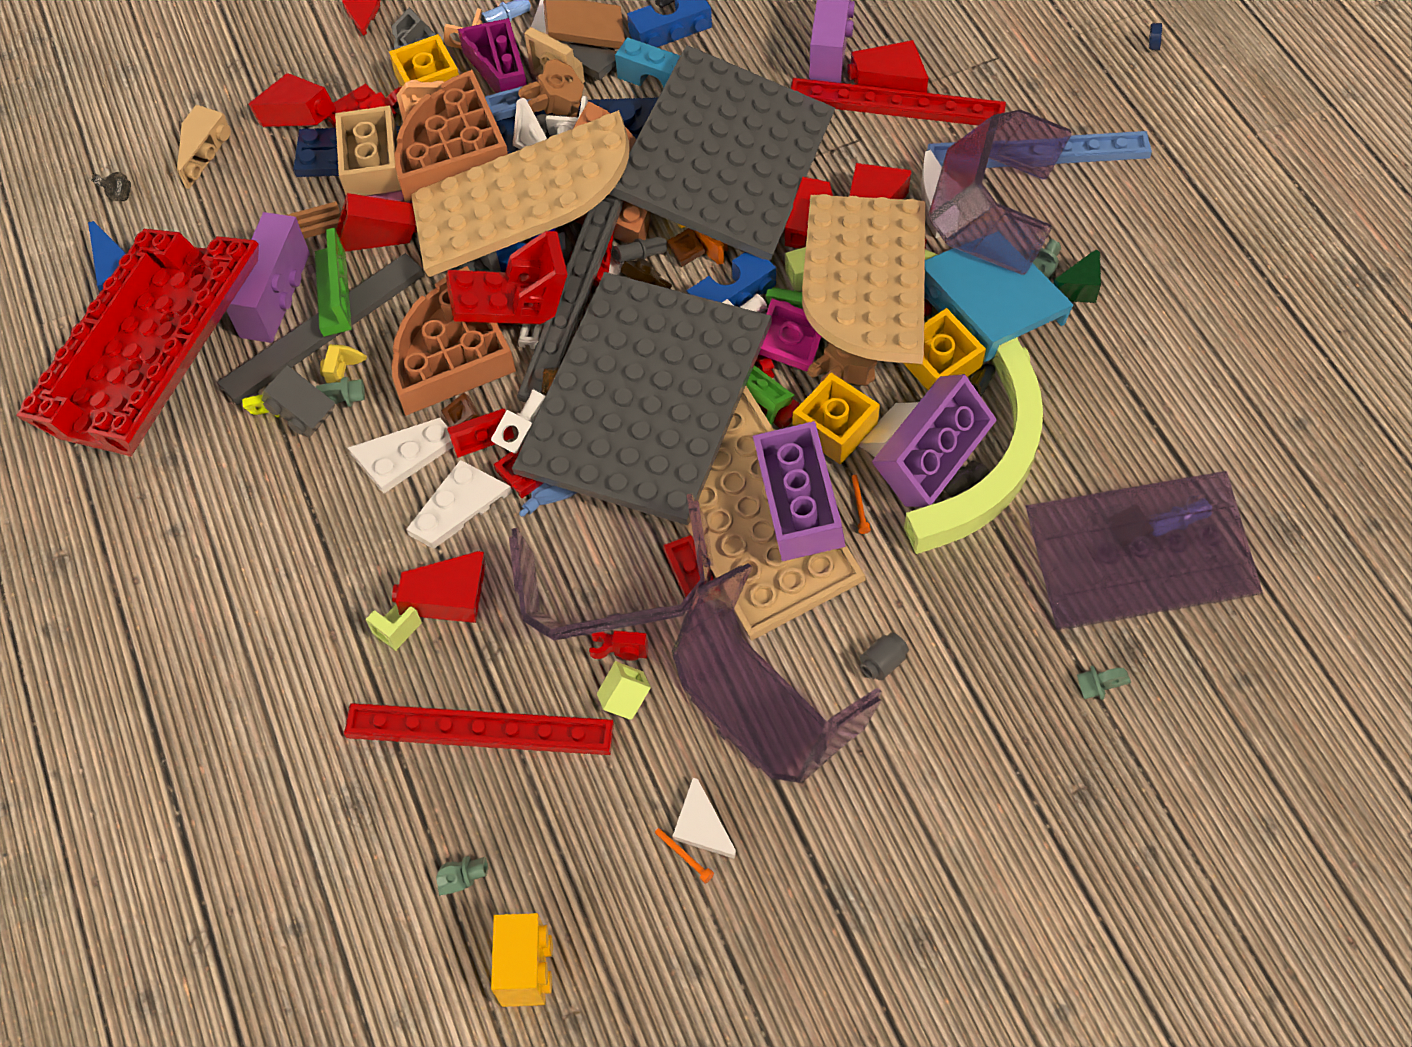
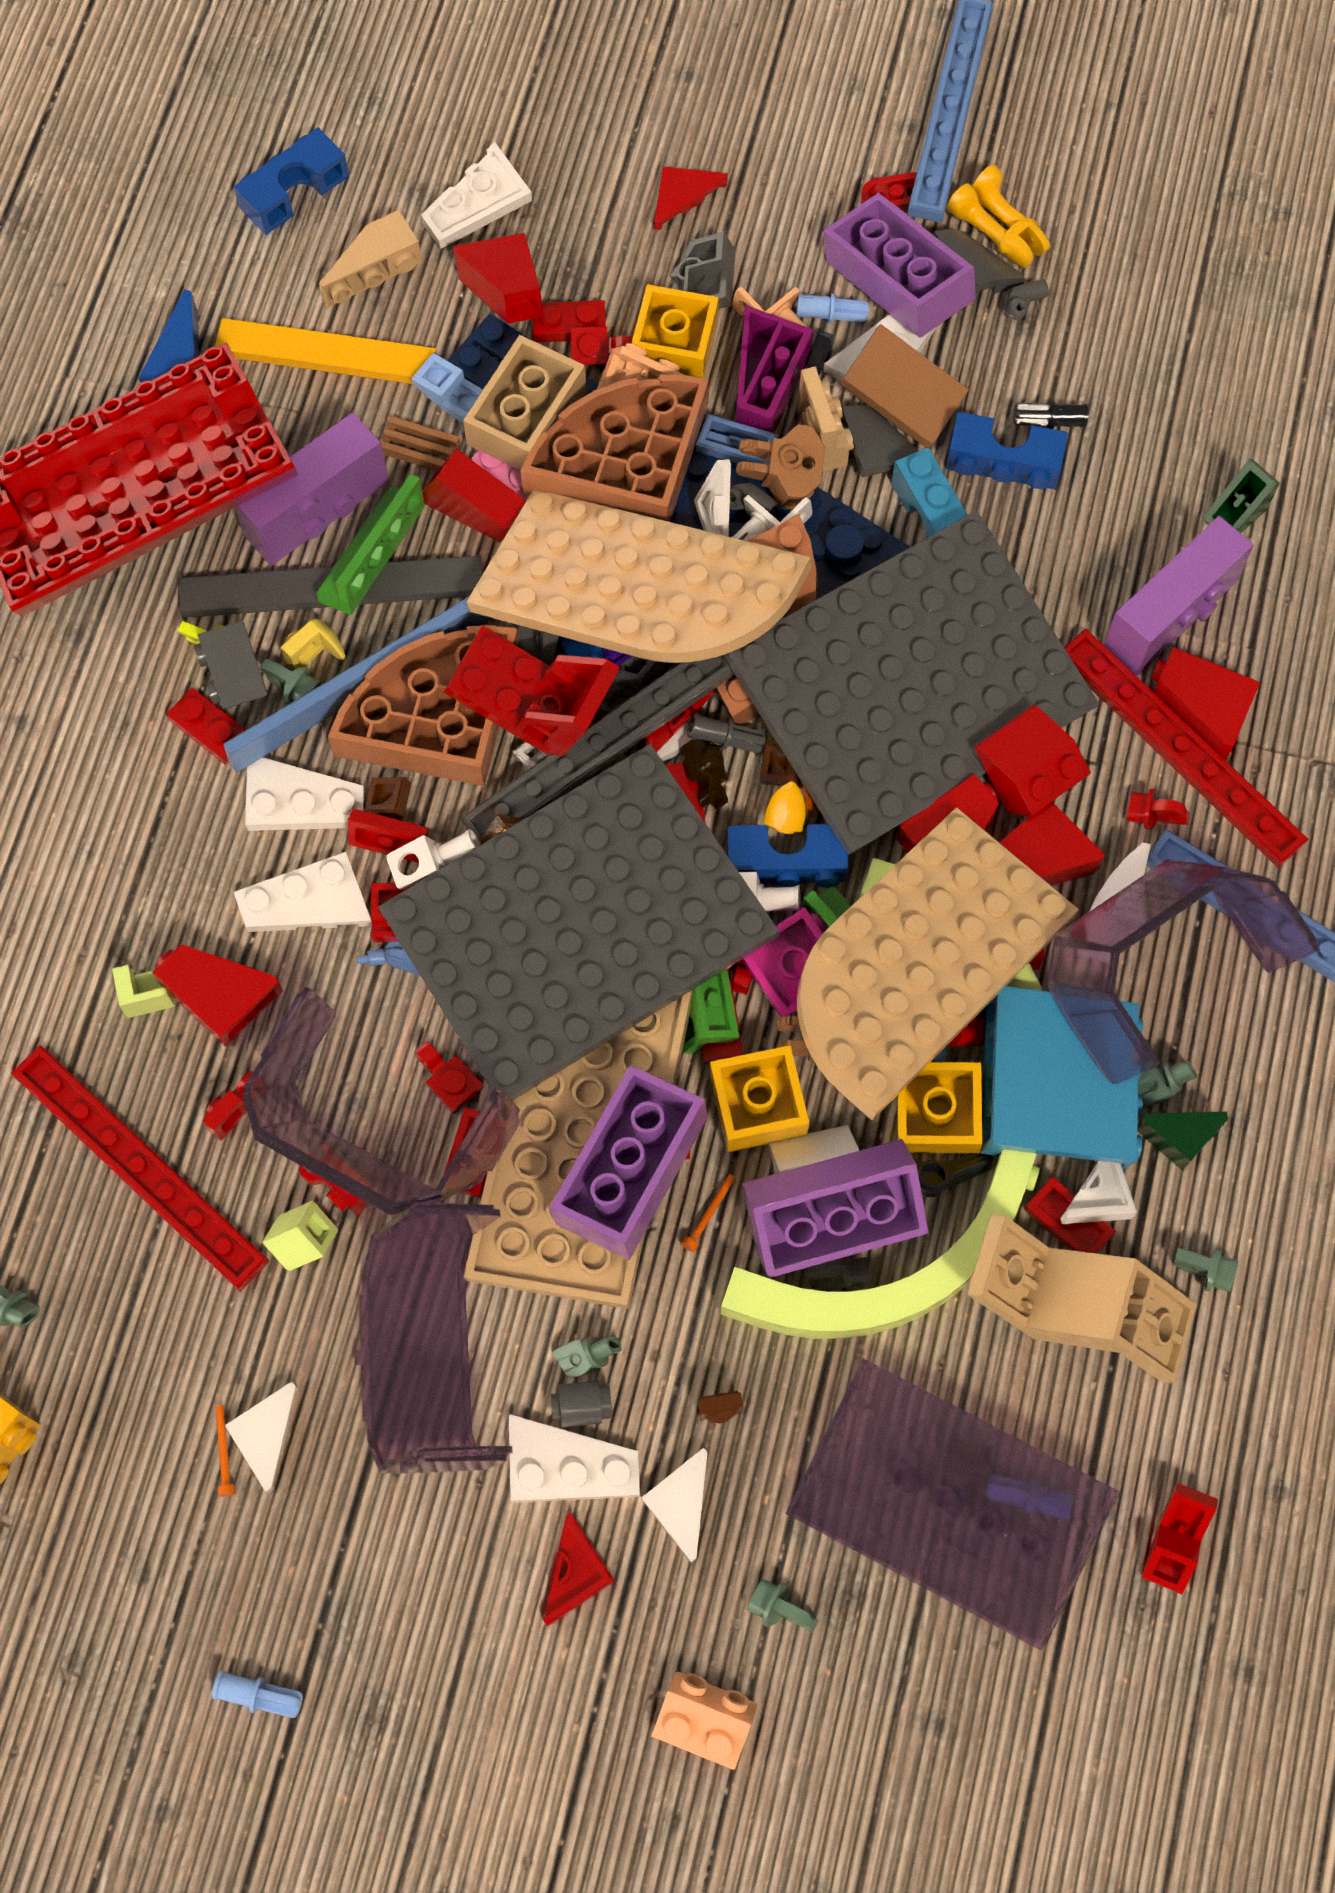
camera: 35 degrees right, 10 degrees up
(99, 146) = (309, 161): none -> blue arch
(115, 185) = (249, 253): clear smoke piece -> none
(218, 204) = (322, 351): none -> yellow tile
(240, 77) = (480, 198): none -> white wing
(304, 181) = (446, 386): none -> light blue slope
(307, 451) = (204, 723): none -> red plate
(377, 379) = (330, 696): none -> medium blue tile
(511, 654) = (226, 1111): none -> red plate
(519, 29) = (821, 351): none -> black tile
(640, 540) = (450, 1081): none -> red plate
(713, 261) = (786, 810): none -> yellow plate
(829, 150) = (1031, 761): none -> red slope
(837, 981) = (257, 1695): none -> light blue axle
(859, 629) = (584, 1354): none -> sand green piece
(909, 699) = (567, 1465): none -> white wing
(913, 139) = (1148, 810): none -> red piece
(965, 598) = (720, 1407): none -> reddish brown tile
(966, 755) = (576, 1574): none -> red tile
(991, 672) = (678, 1503): none -> white tile
(1064, 364) = (1049, 1207): none -> red plate
(1069, 337) = (1101, 1197): none -> white tile
(1112, 389) = (1082, 1299): none -> tan bracket
(1119, 776) = (705, 1719): none -> light nougat bracket
(1159, 334) = (1218, 1269): none -> sand green piece
(1278, 489) = (1178, 1538): none -> red slope

